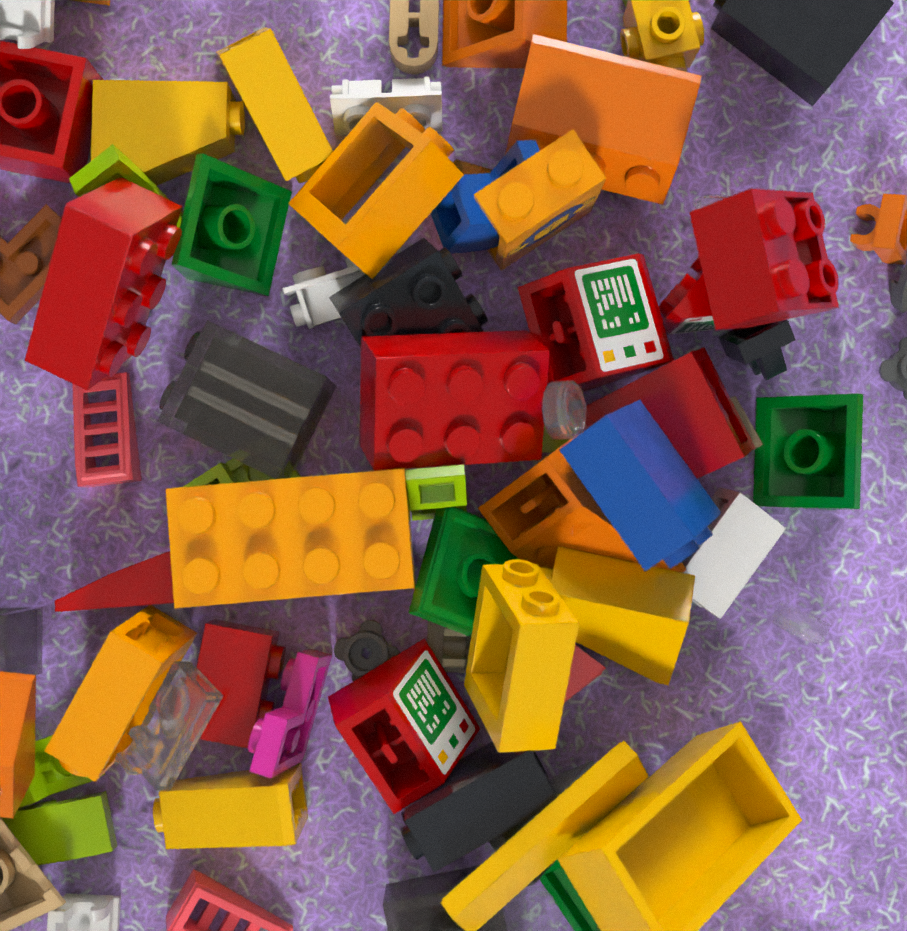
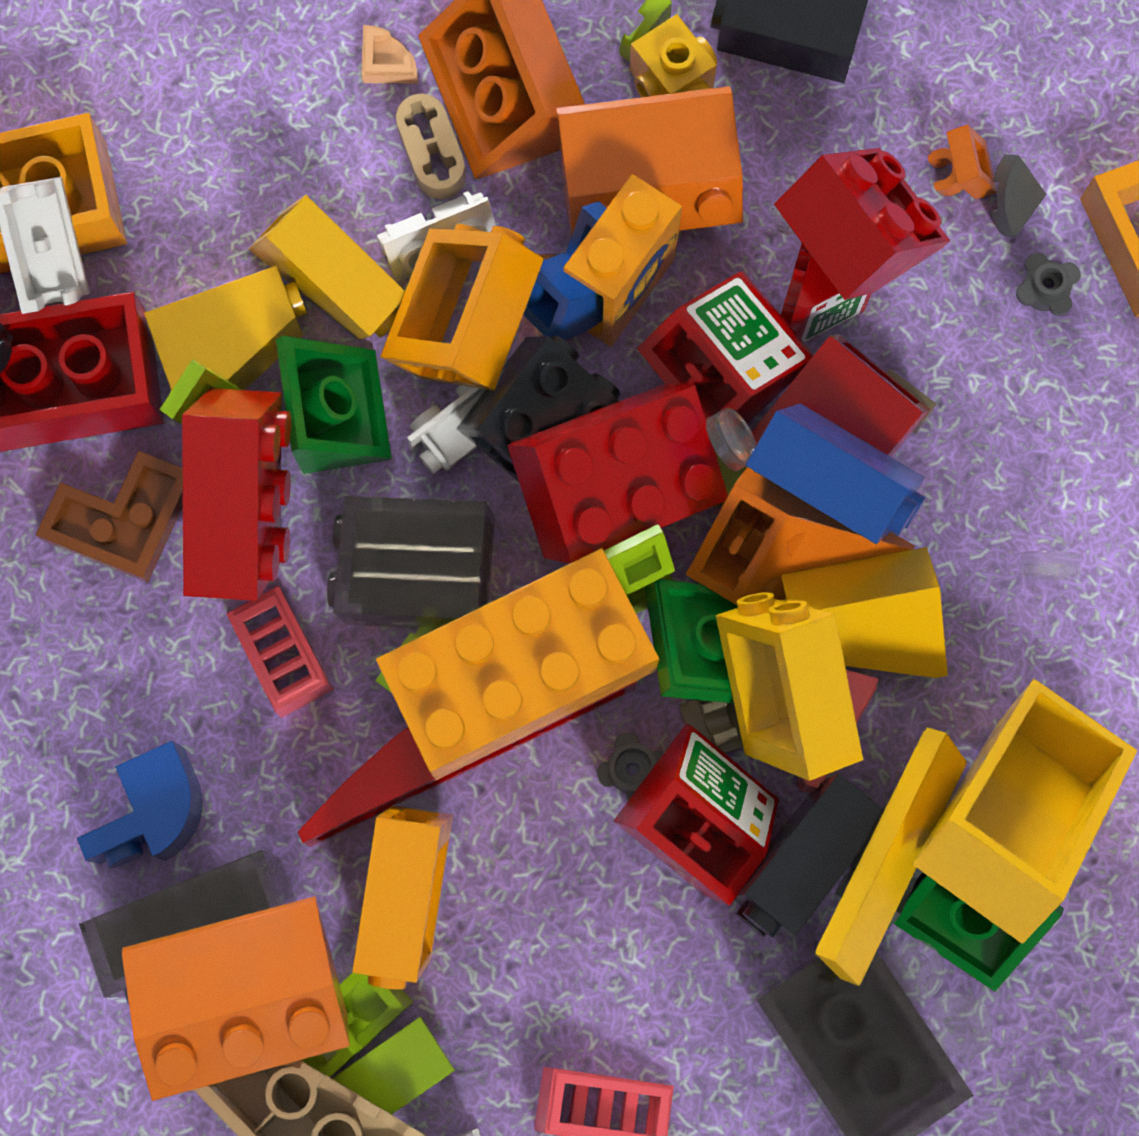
camera: 15 degrees left, 10 degrees down
(171, 726) = (468, 908): clear plate -> none
(233, 810) = (559, 975): yellow slope -> none
(240, 666) = (510, 848): red brick -> none
(283, 734) = (583, 869): dark pink plate -> none
(733, 553) = (951, 520): white hinge -> none
(759, 347) = (892, 317): black tile -> none
(809, 451) = (985, 398): green slope -> none

